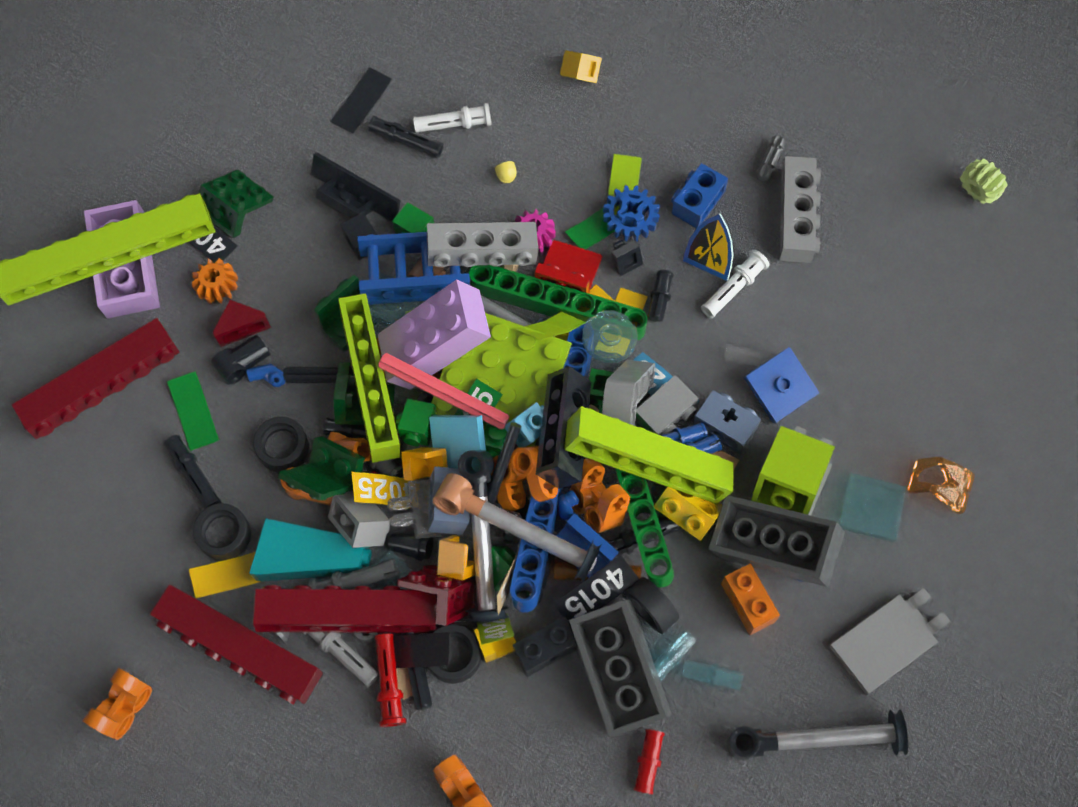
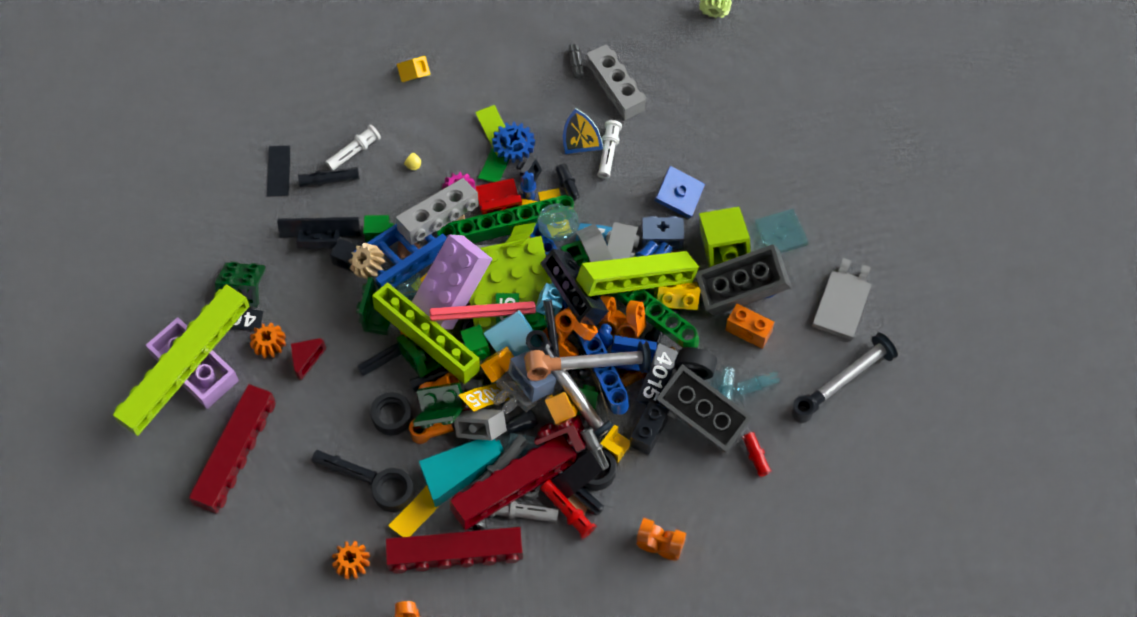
camera: 35 degrees left, 5 degrees down
(124, 593) = (342, 560): none -> orange gear
(193, 410) = (313, 430): green sticker -> none
(233, 364) = (322, 382): black piece -> none
(267, 372) = (348, 376): blue arm -> none
(364, 255) = (366, 261): none -> tan gear
(461, 632) = (593, 445): none -> dark grey axle
(494, 630) = (615, 433): lime sticker -> none
(608, 274) = (528, 186): none -> blue axle
(703, 197) = (548, 107): blue brick -> none
(953, 491) = (821, 192): clear orange piece -> none

